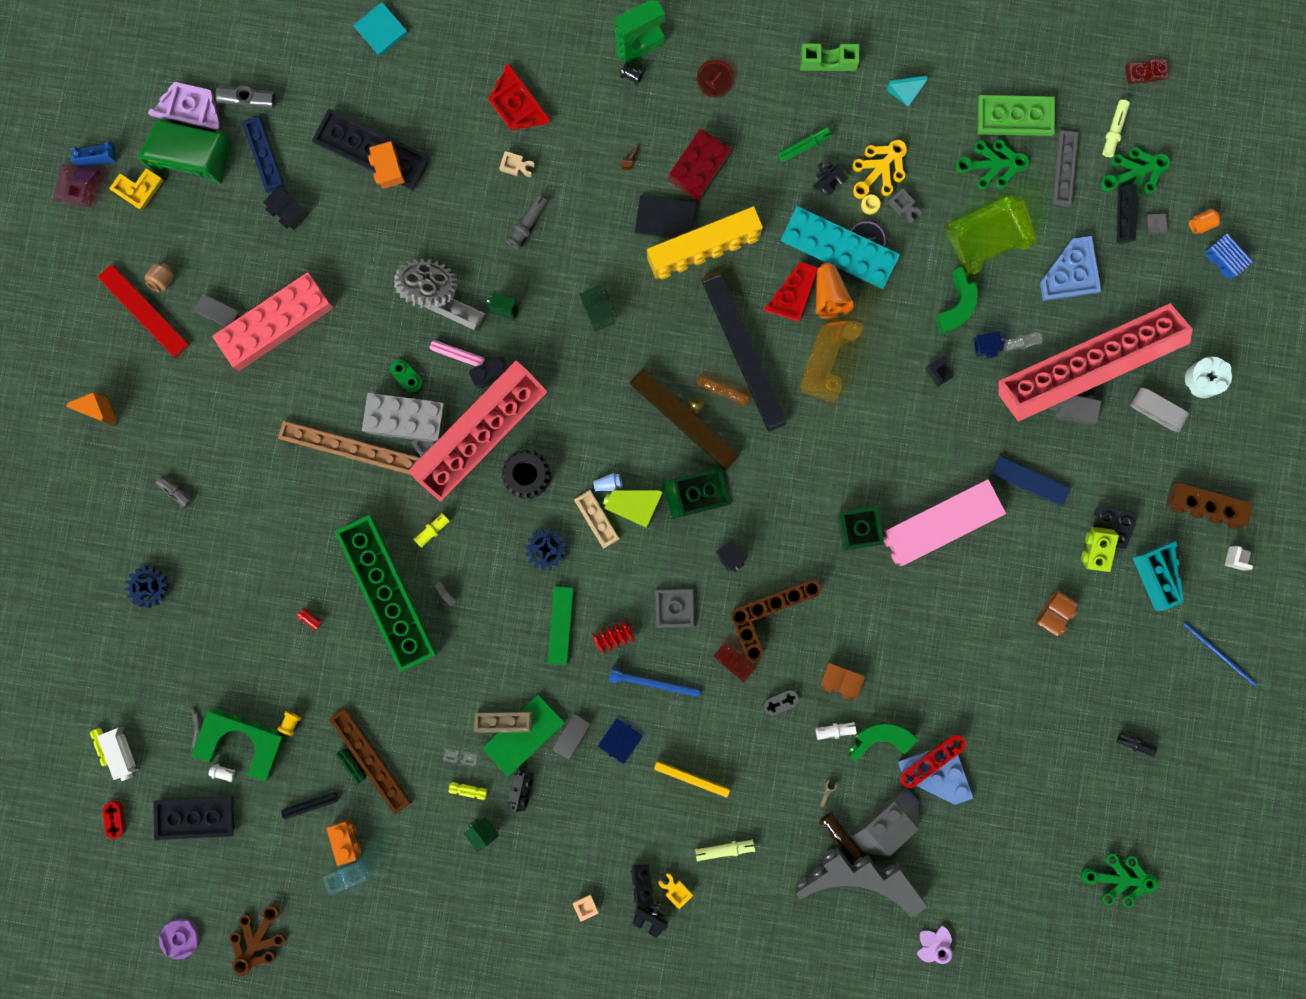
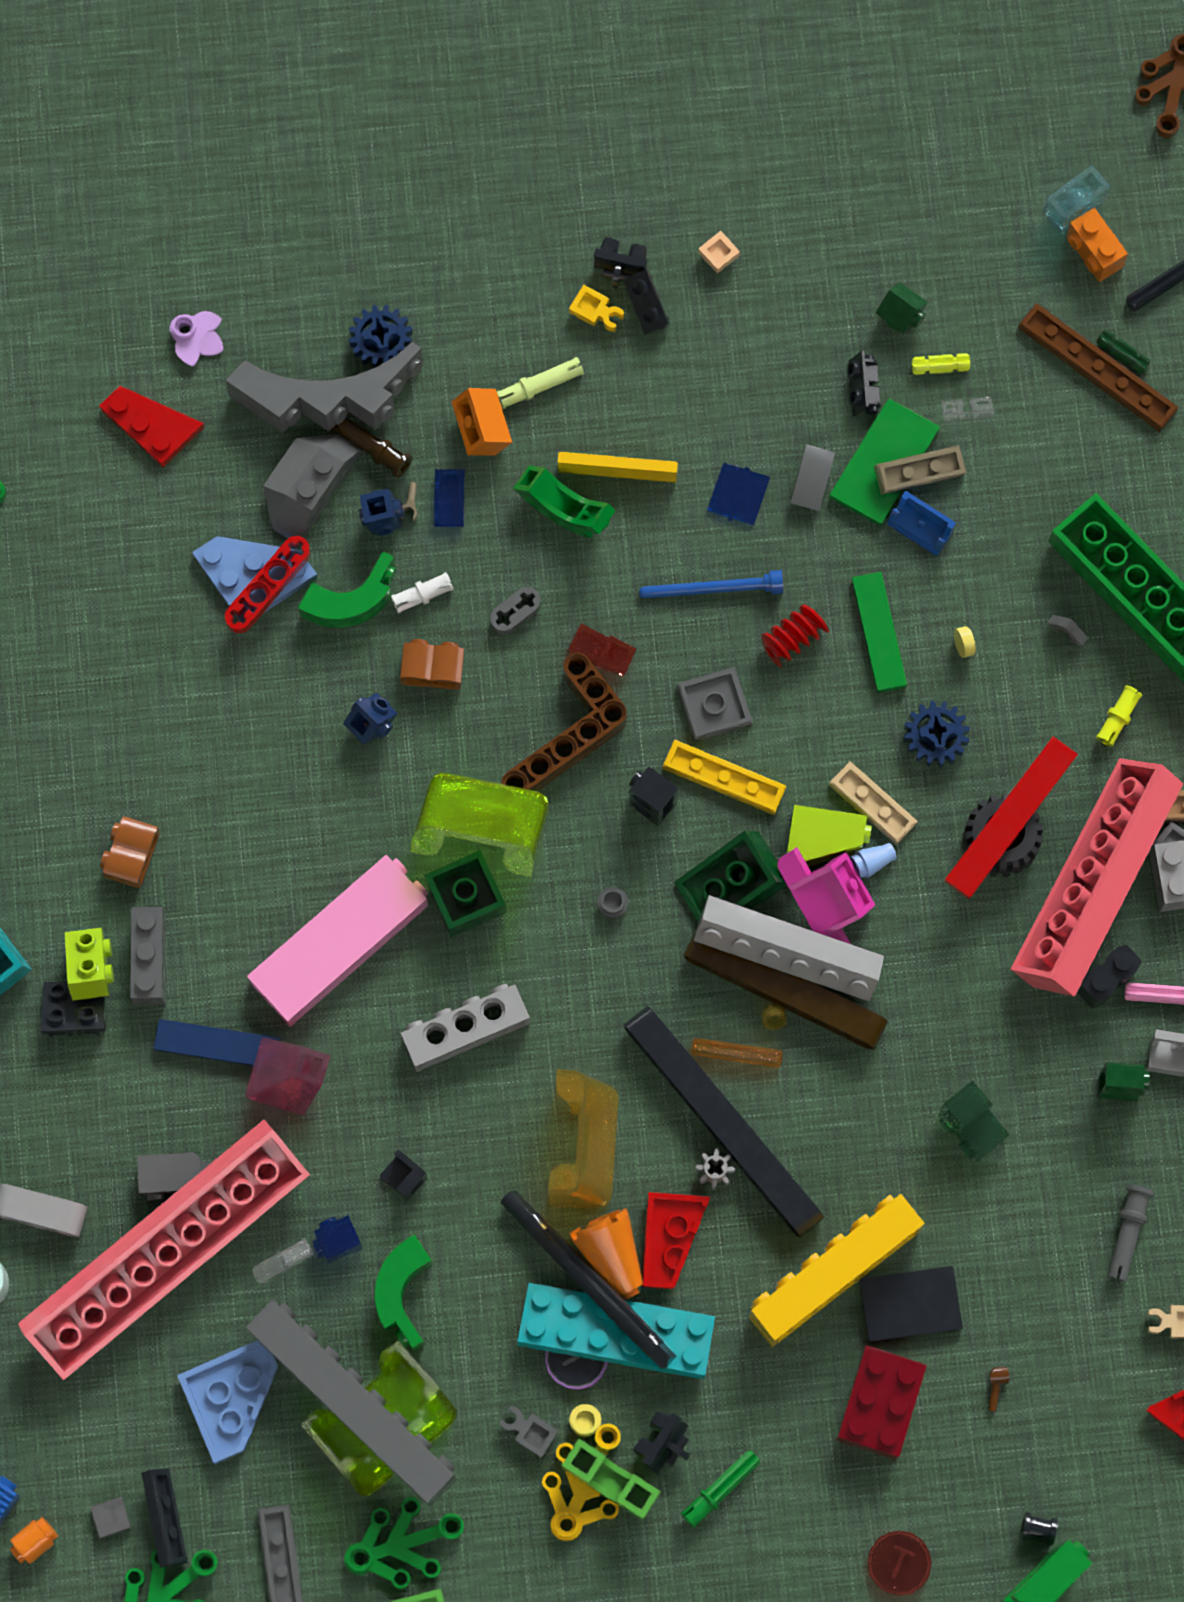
camera: 160 degrees right, 10 degrees down
(510, 603) = (964, 641): none -> light yellow tile
(513, 686) = (921, 523): none -> blue hinge
(518, 478) = (1011, 818): none -> red tile
(642, 464) = (827, 896): none -> dark pink plate
(676, 439) = (789, 948): none -> light grey brick
(682, 560) = (724, 777): none -> yellow tile
(733, 763) = (561, 504): none -> green arch
(754, 329) = (715, 1160): none -> light grey gear
(769, 832) = (481, 422): none -> orange brick
(771, 501) = (612, 902): none -> dark grey plate
(802, 789) = (449, 498): none -> clear blue tile
(826, 911) = (367, 339): none -> dark blue gear
(839, 568) = (485, 815): none -> clear neon green windscreen
(849, 279) = (588, 1279): none -> black piece
(850, 795) = (381, 512): none -> dark blue brick
(859, 153) = (610, 1480): none -> bright green arch
(890, 656) = (370, 718): none -> dark blue brick
(910, 440) = (425, 1054): none -> light grey brick
(978, 892) = (150, 424): none -> red wing
(995, 448) = (286, 1075): none -> clear pink slope
(1007, 242) = (351, 1403): none -> dark grey brick
(1061, 544) = (148, 956): none -> dark grey brick

